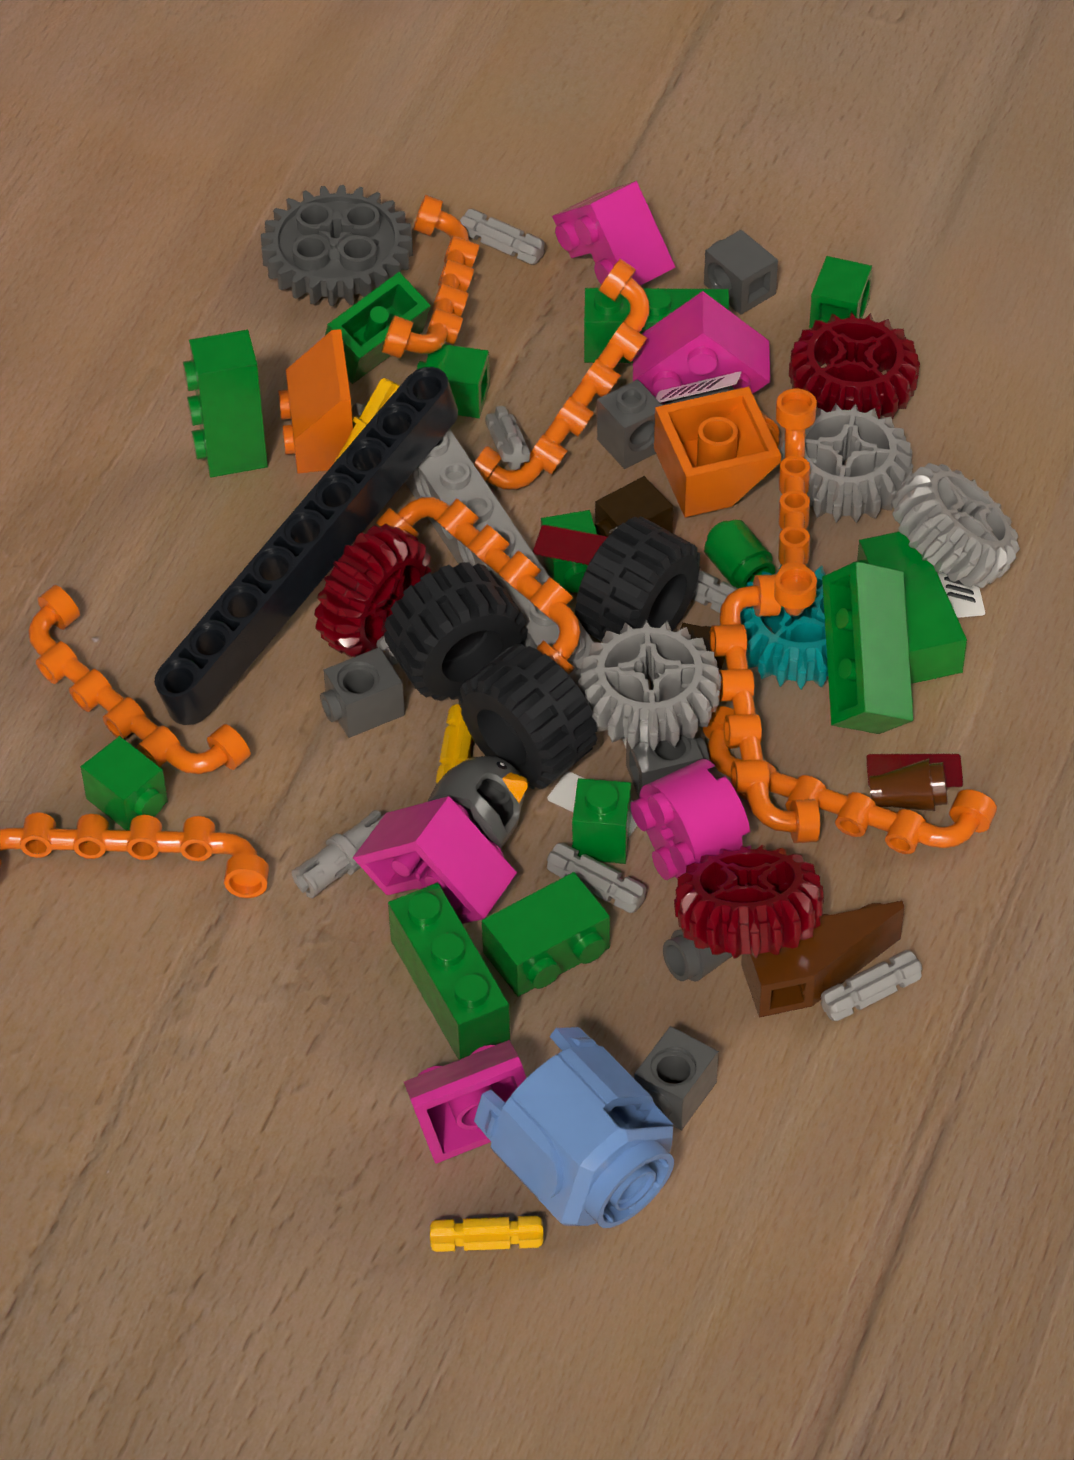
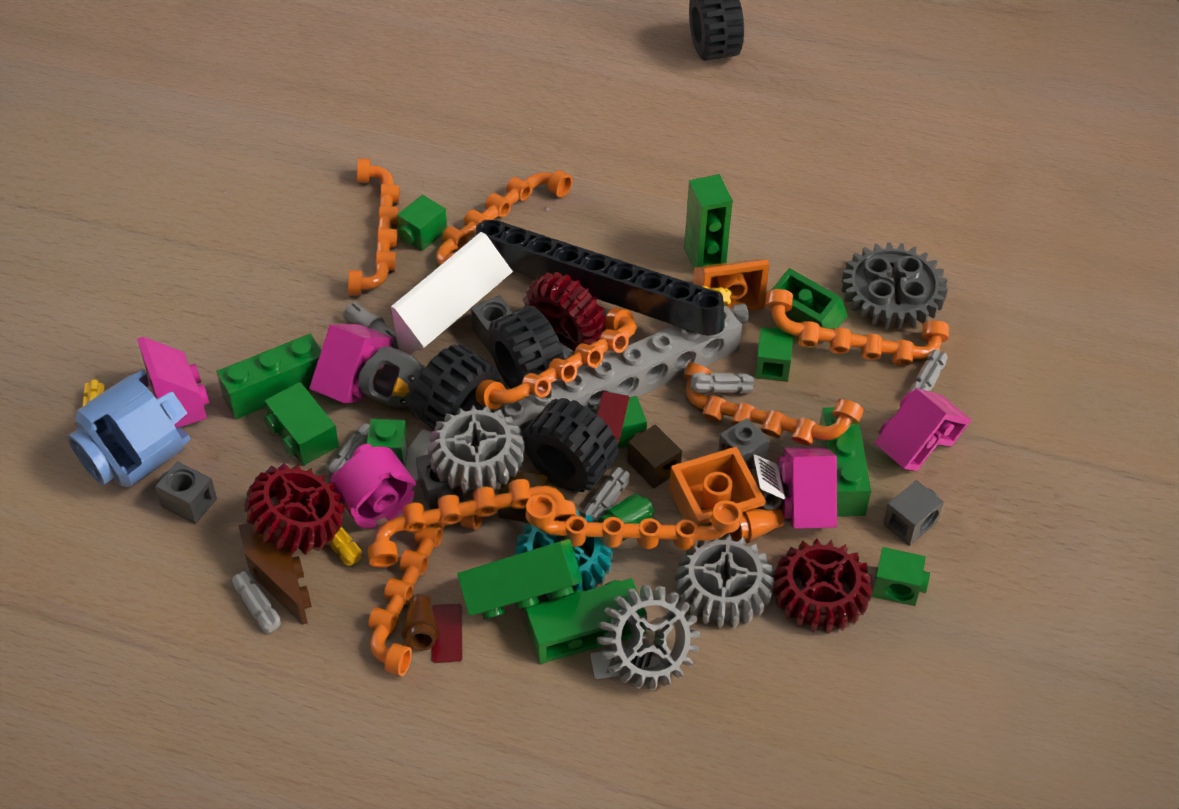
camera: 85 degrees right, 0 degrees up
(323, 731) = (447, 293): none -> white slope

